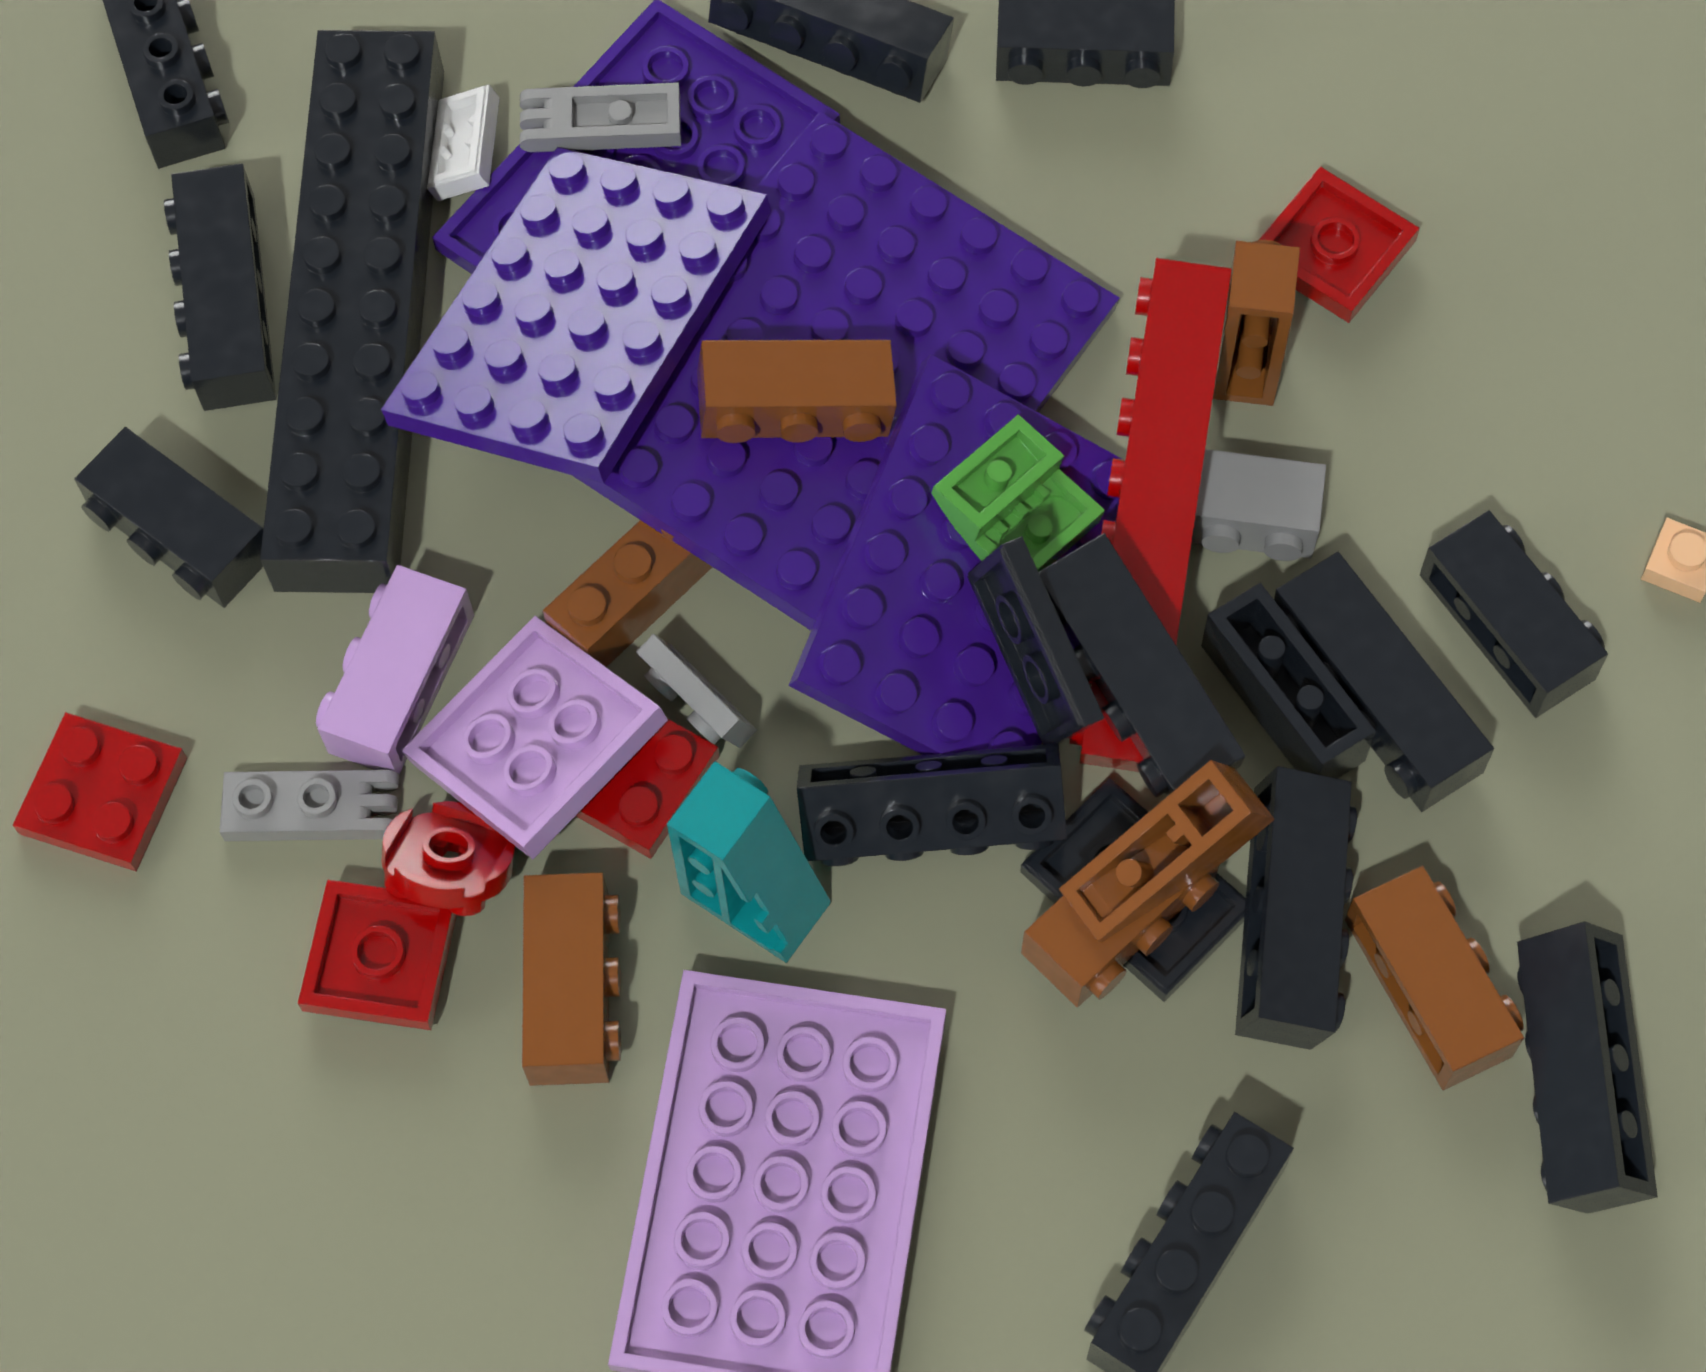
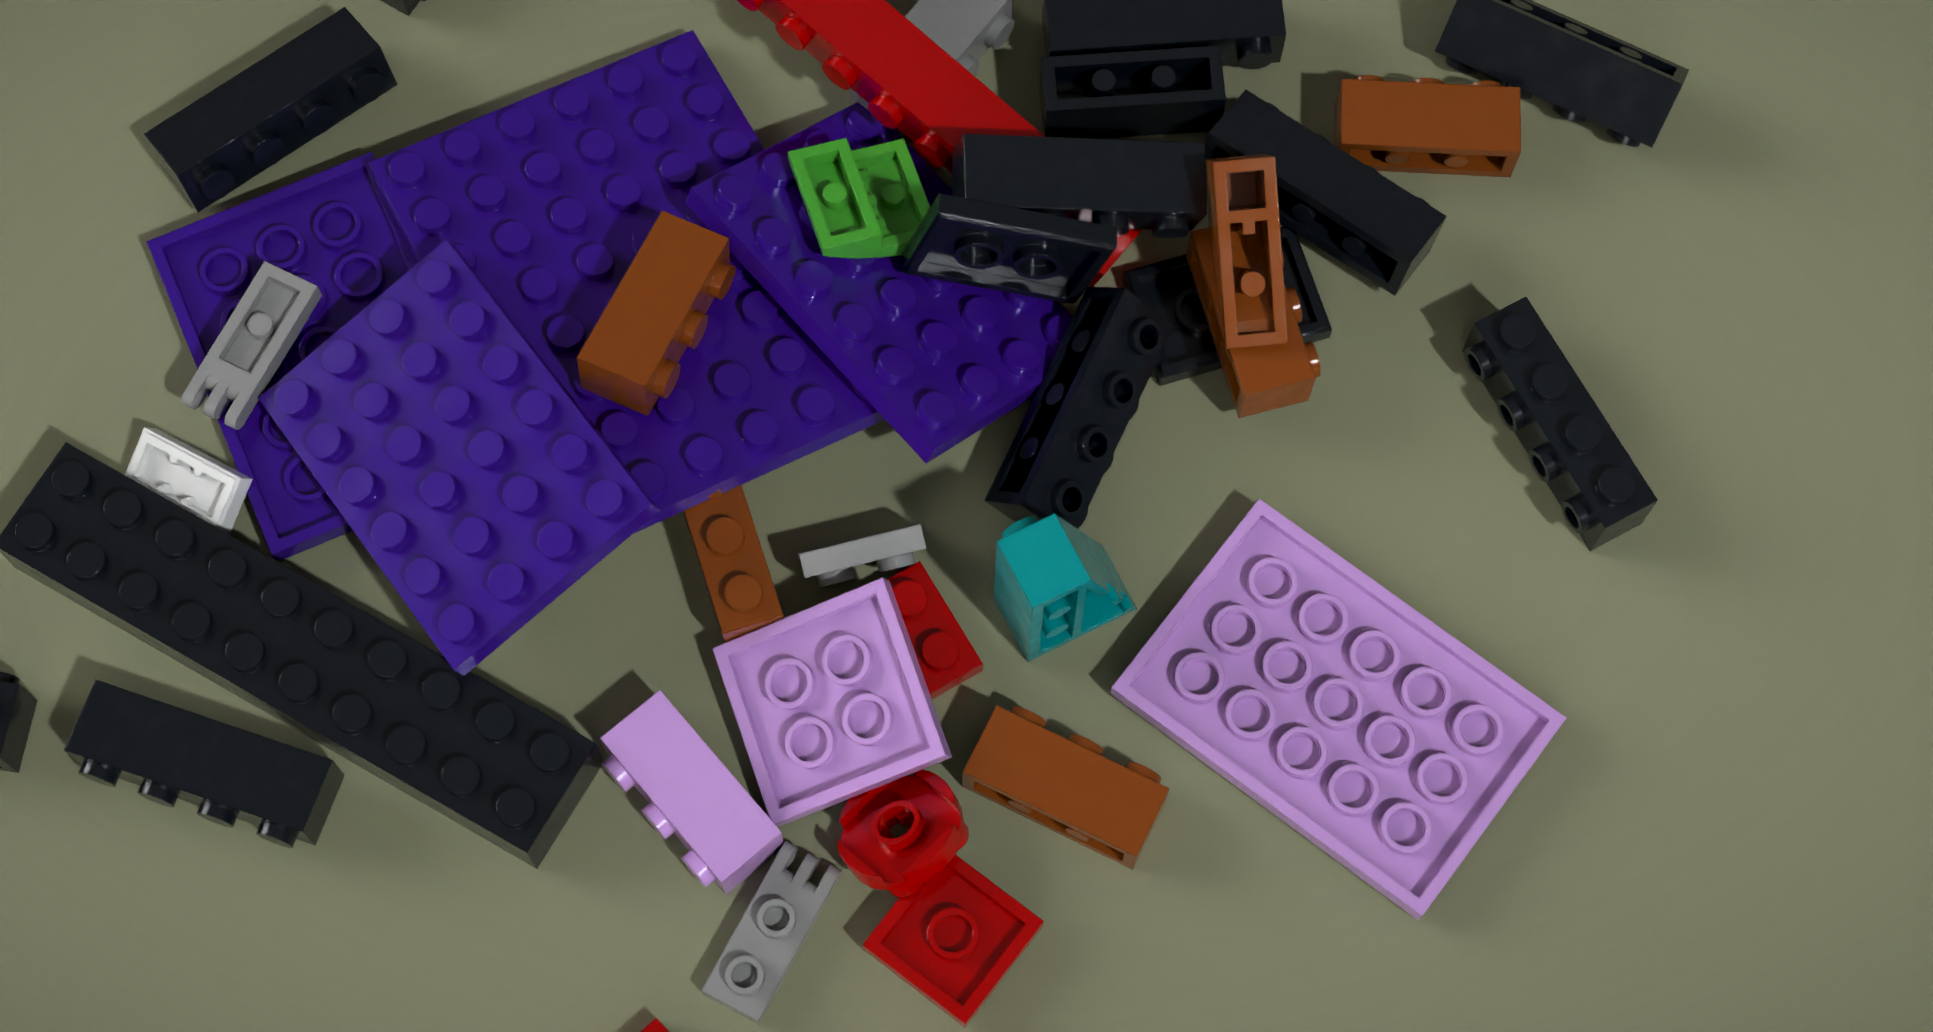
camera: 65 degrees left, 5 degrees up
(171, 518) = (417, 921): black brick -> none

